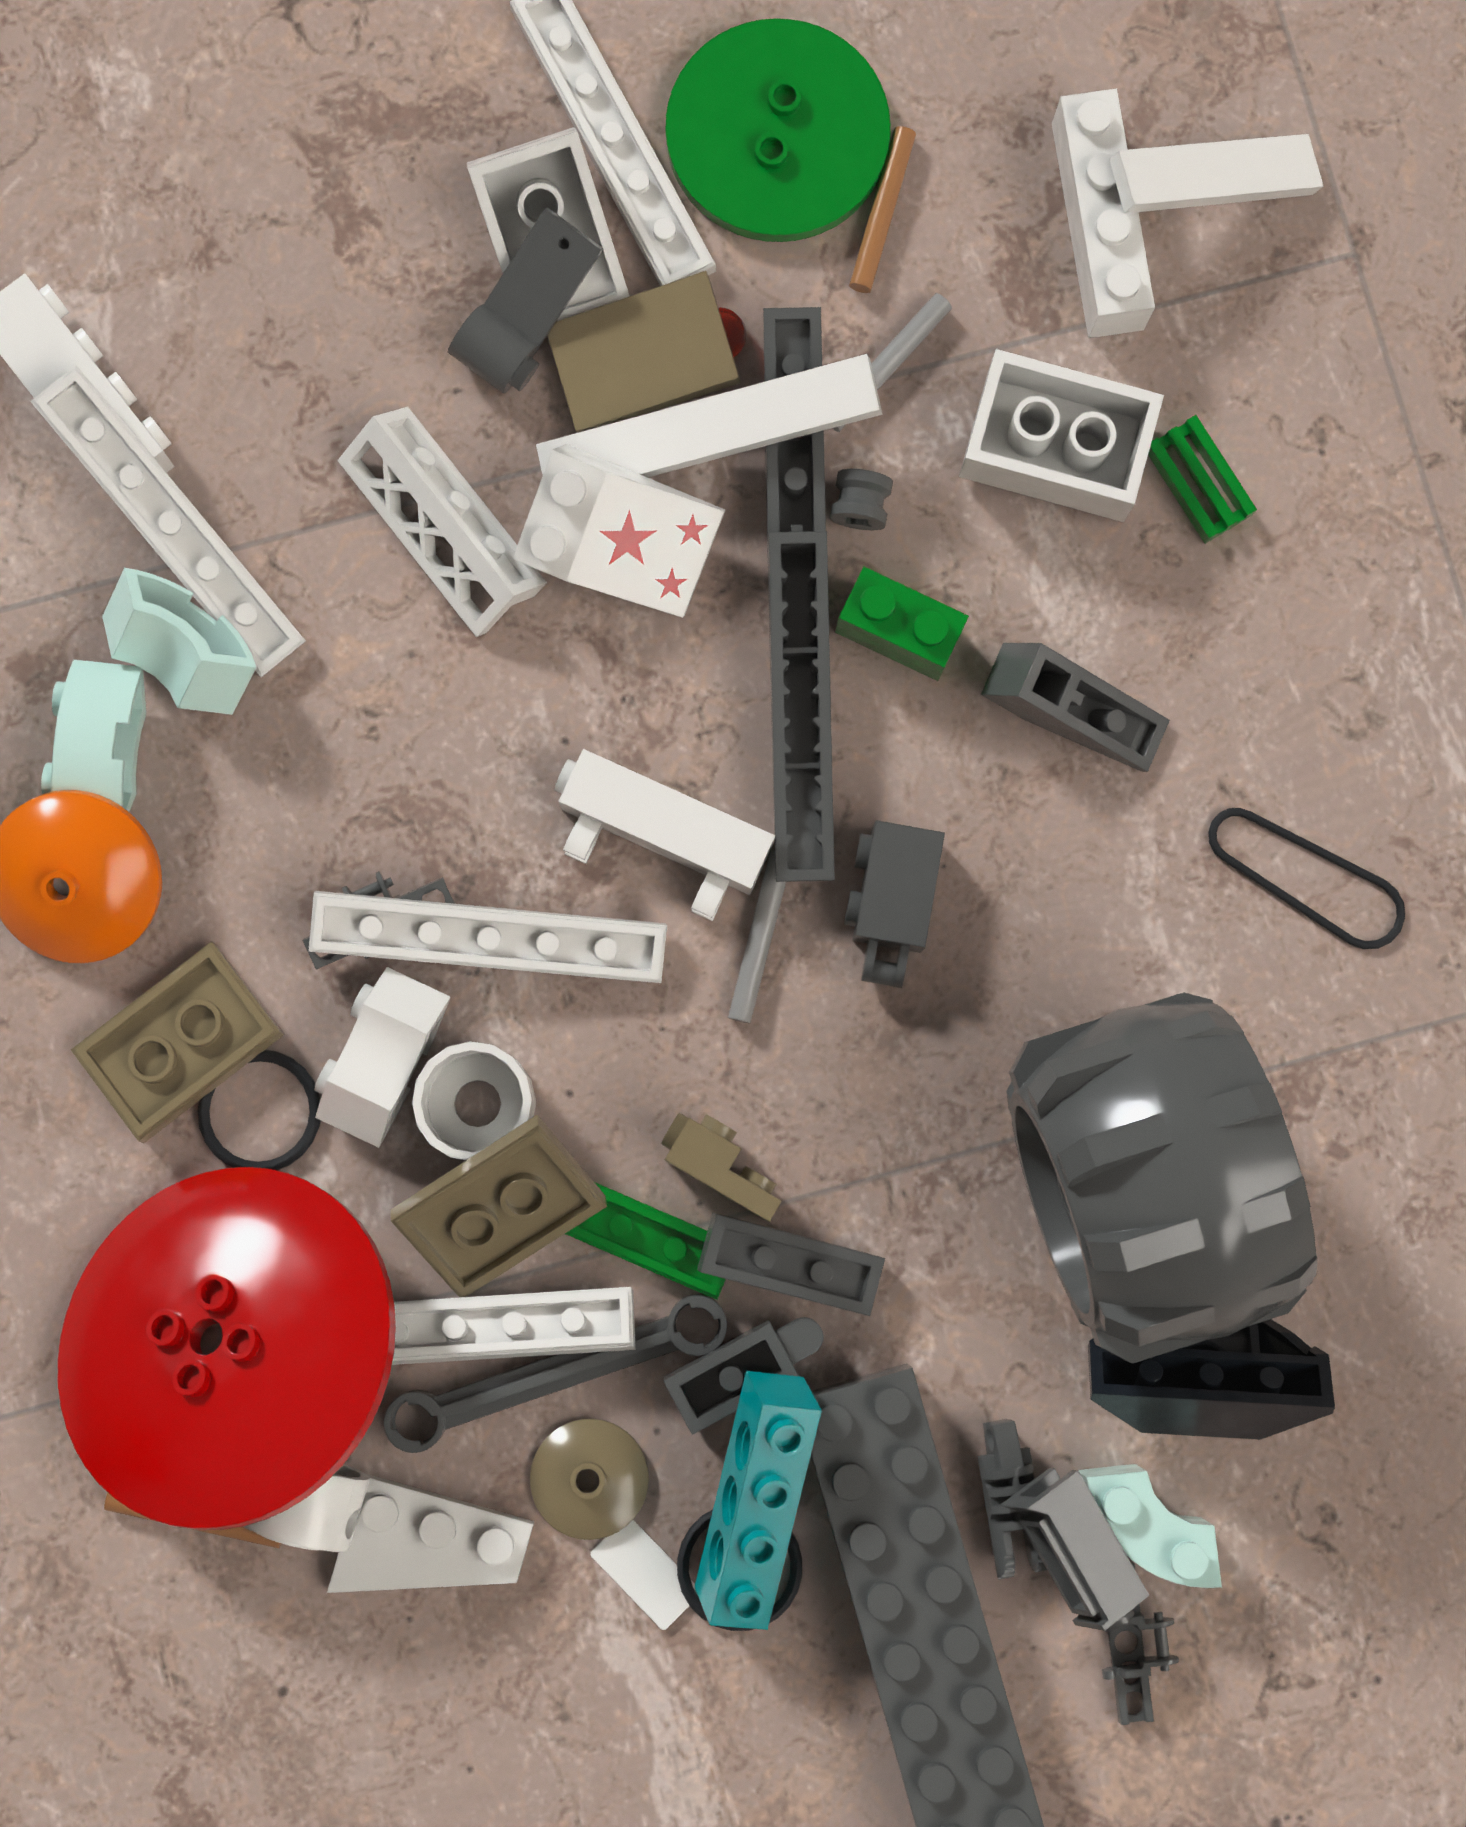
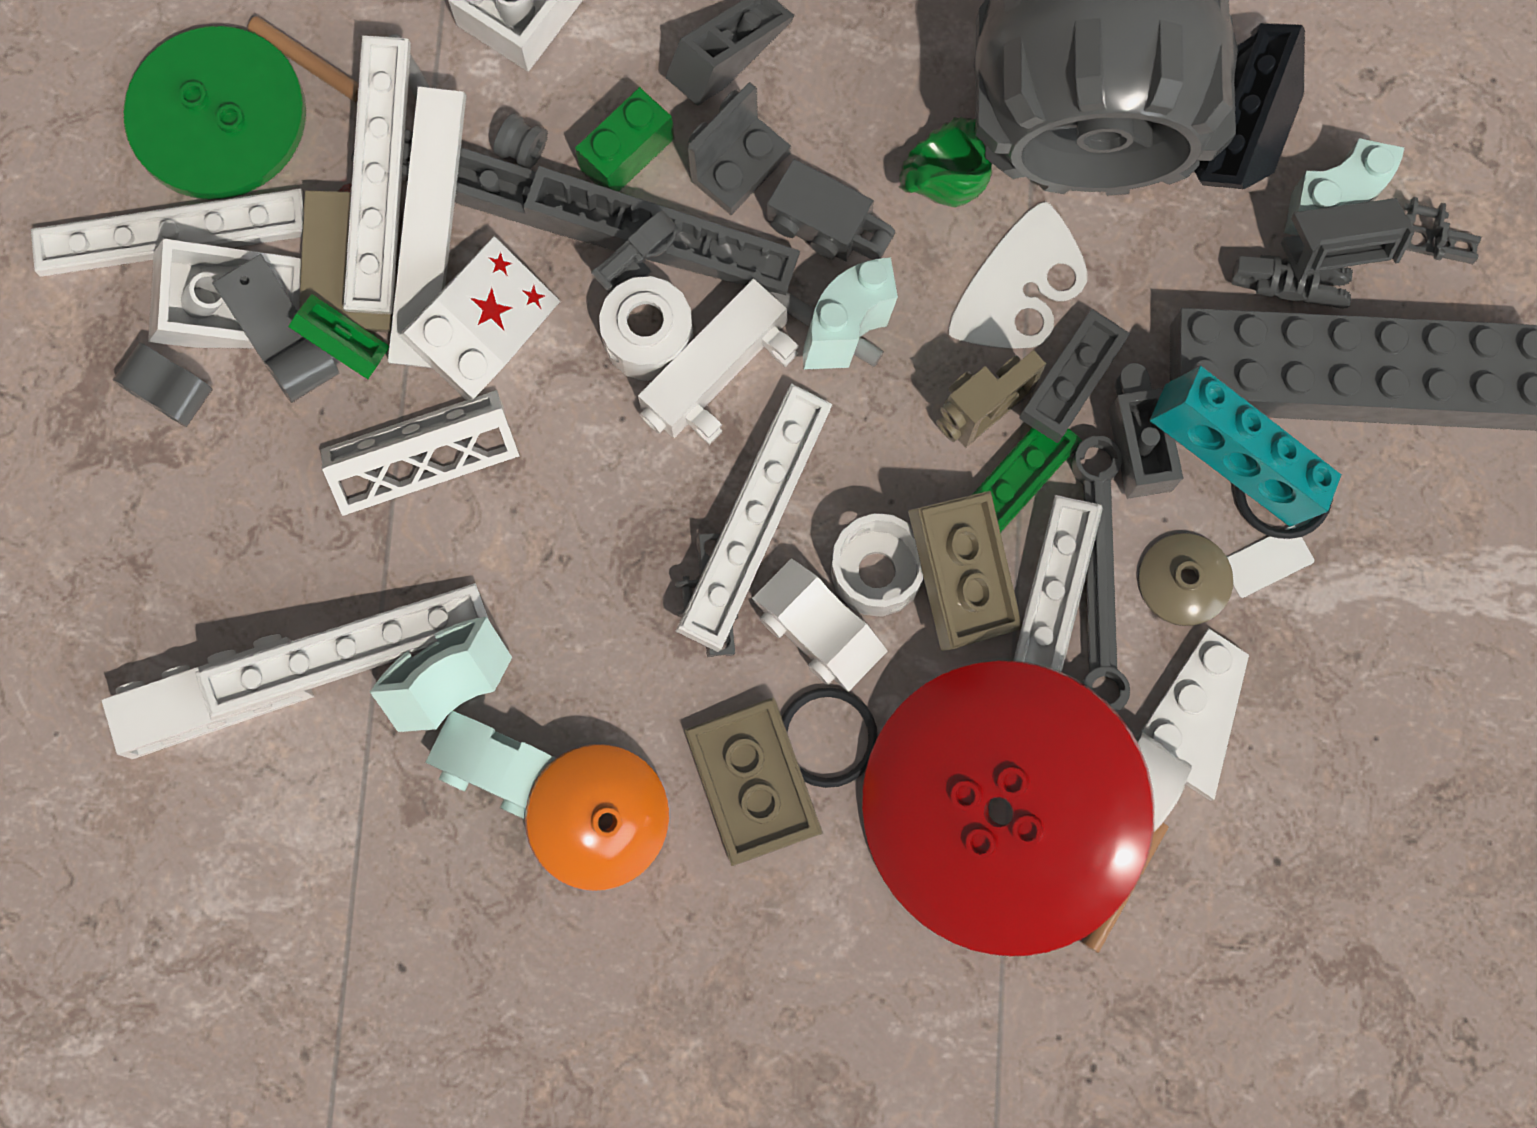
camera: 65 degrees left, 5 degrees down
(420, 198) = (162, 384): none -> dark grey axle
(533, 375) = (339, 336): none -> green tile
(684, 766) = (648, 355): none -> white piece
(751, 346) = (377, 175): none -> white tile
(752, 685) = (628, 259): none -> dark grey piece
(774, 960) = (847, 309): none -> light aqua brick
(931, 1153) = (996, 292): none -> white piece
(936, 761) = (734, 151): none -> dark grey bracket
(998, 1015) = (948, 165): none -> green hair

